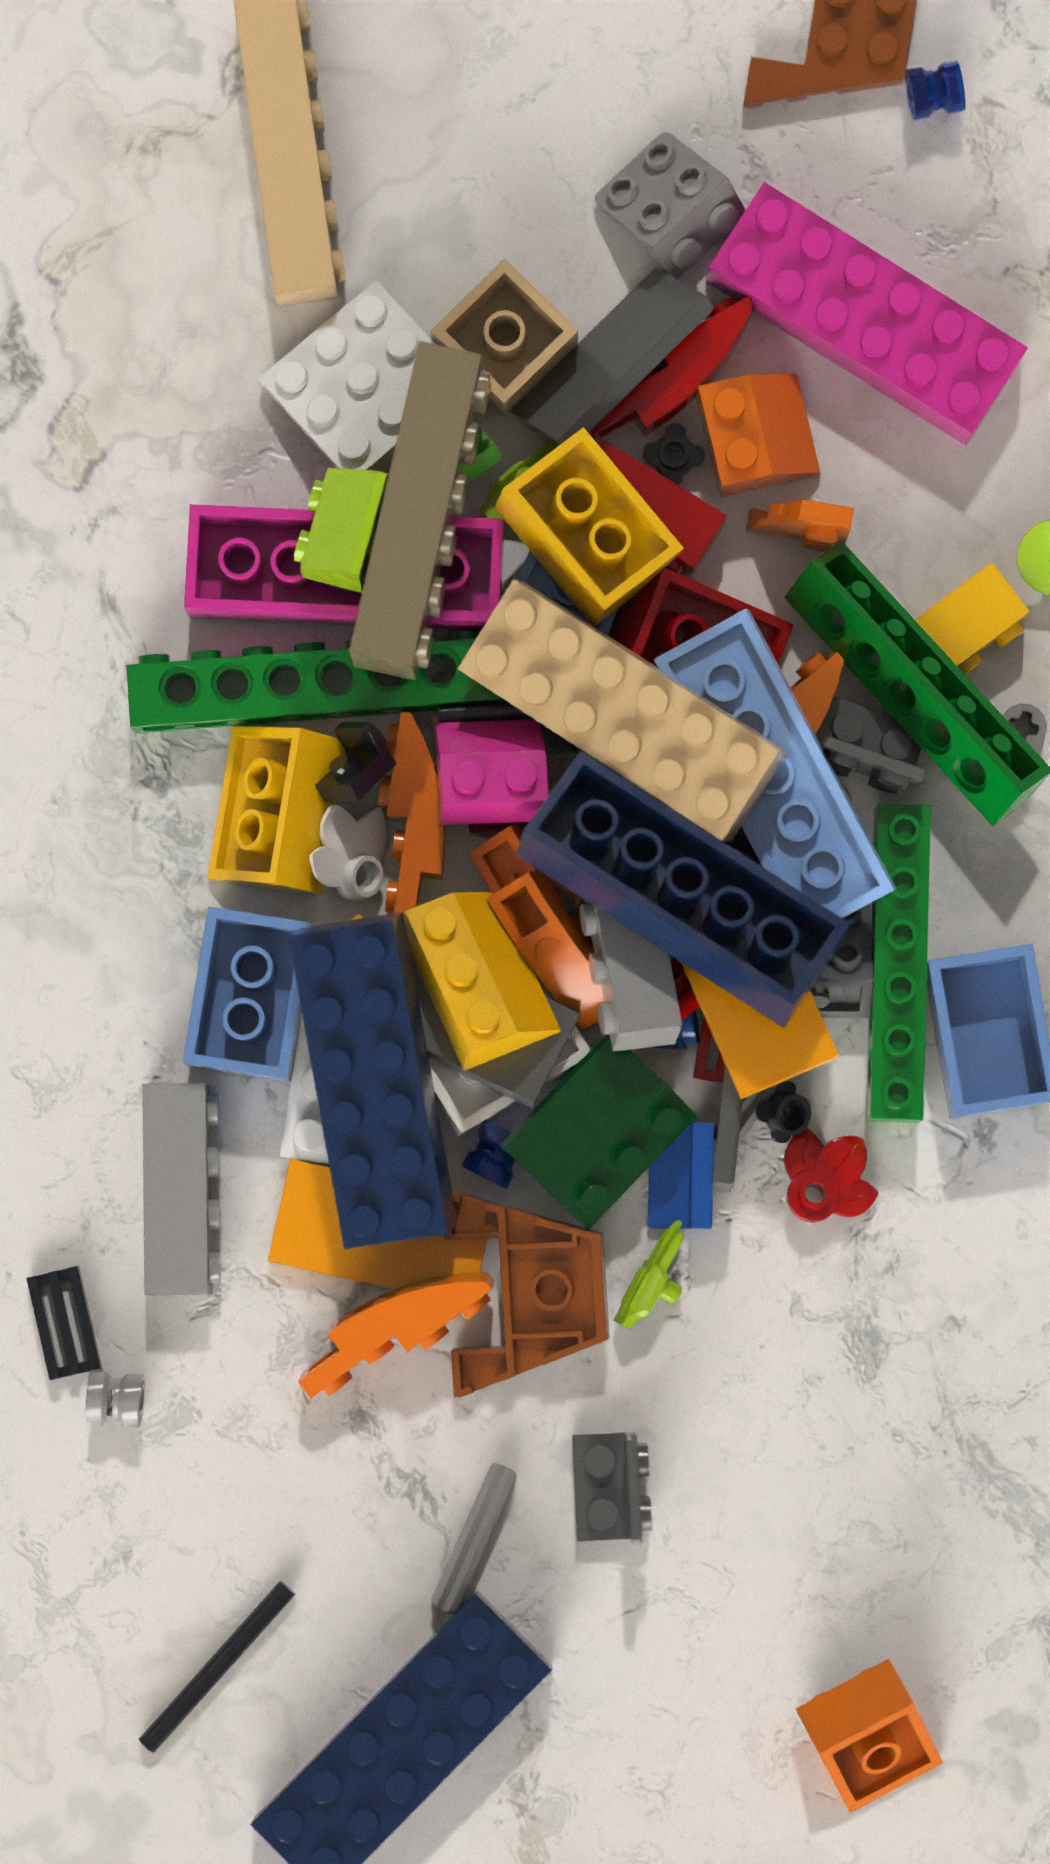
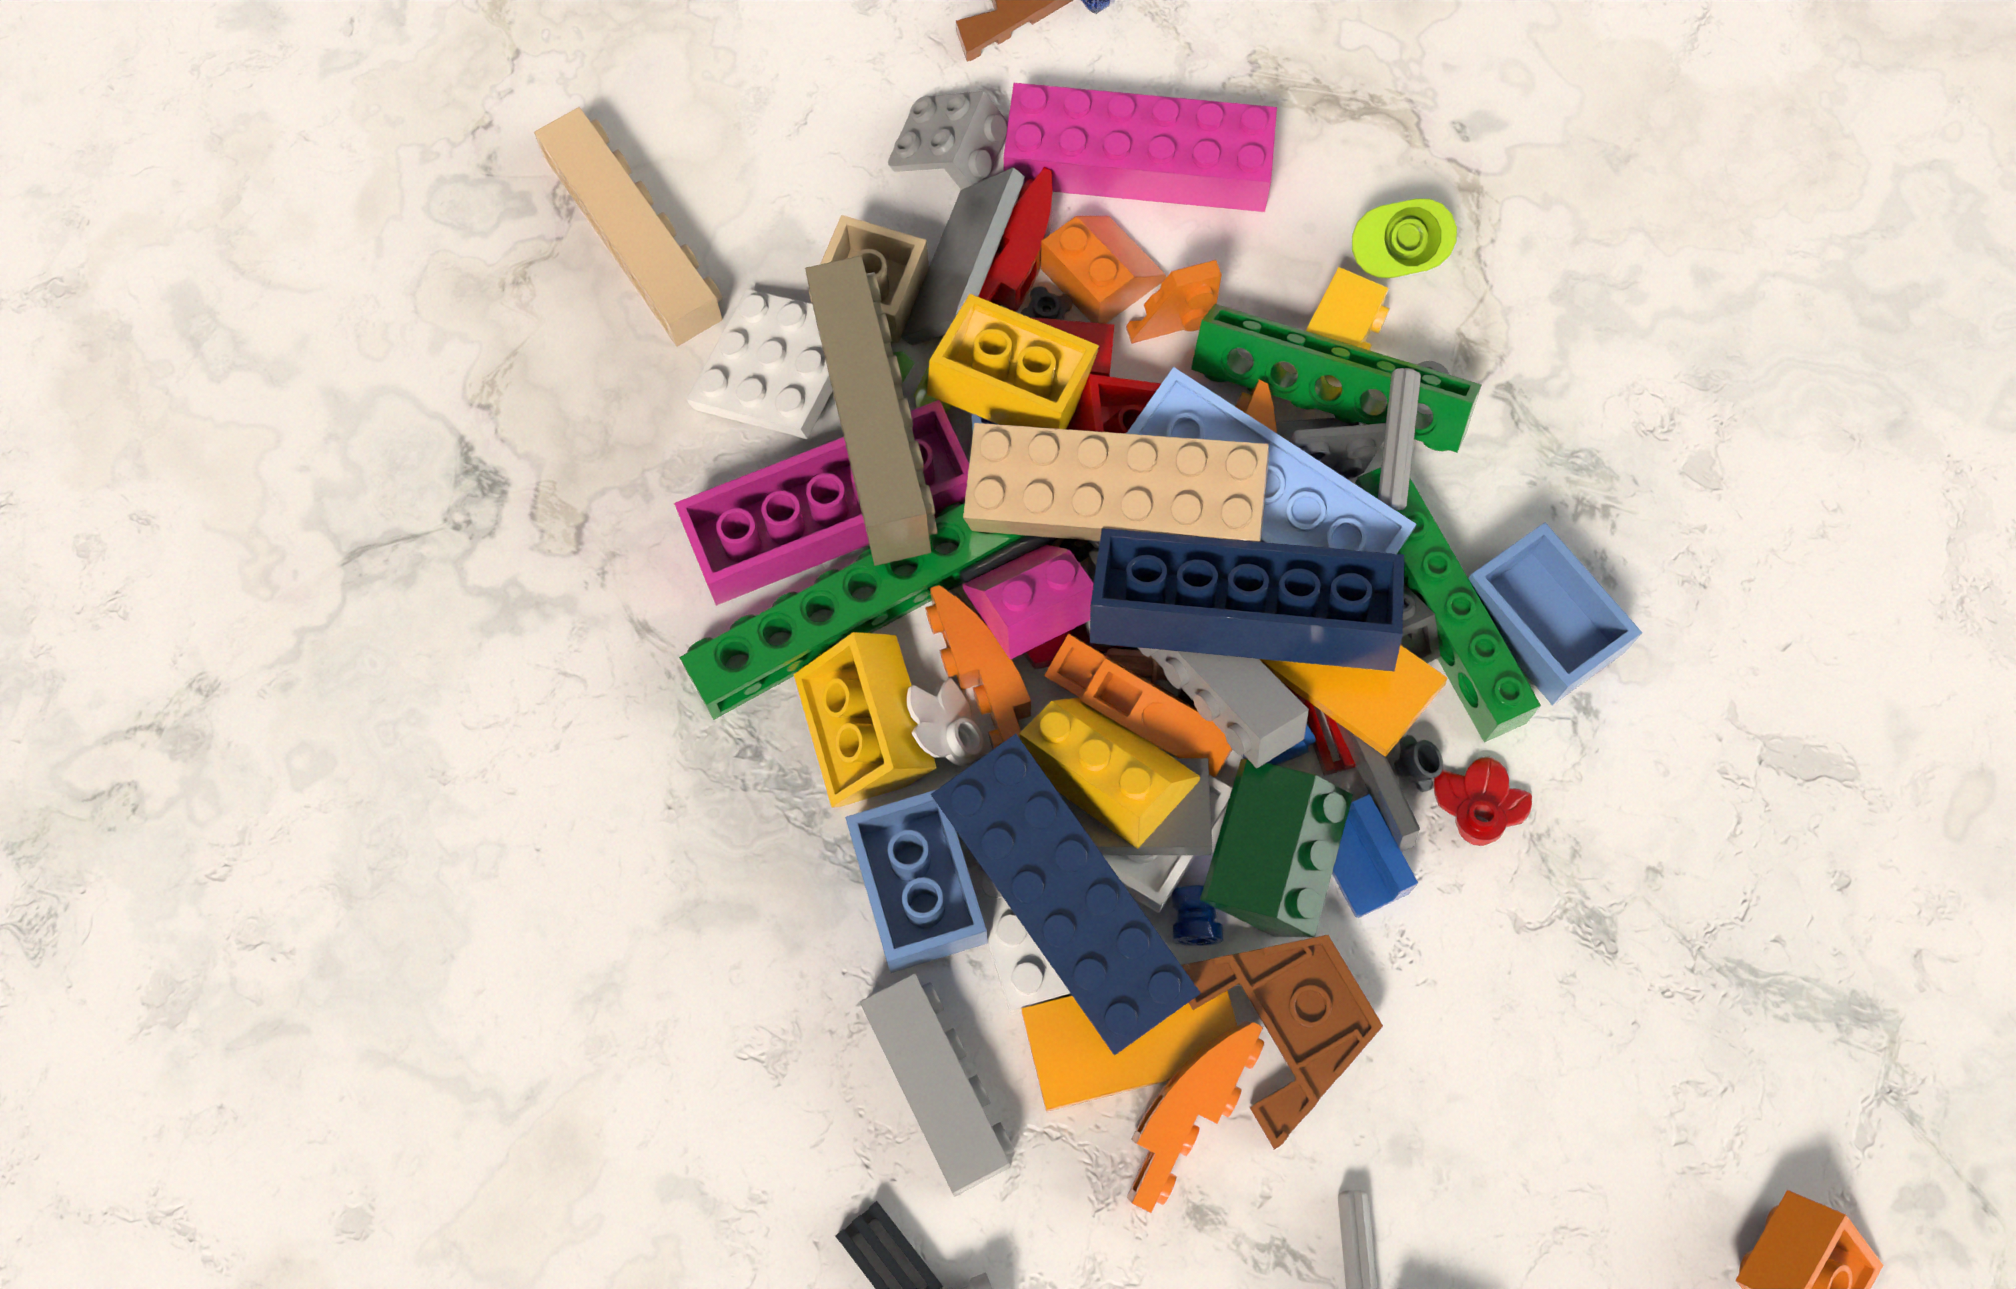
camera: 30 degrees left, 15 degrees down
(342, 527) = (812, 451): lime slope -> none
(360, 767) = (918, 641): black bracket -> none
(608, 1487) = (1461, 1158): dark grey bracket -> none
(652, 1280) = (1388, 957): lime piece -> none
(929, 793) = (1399, 438): none -> light grey axle

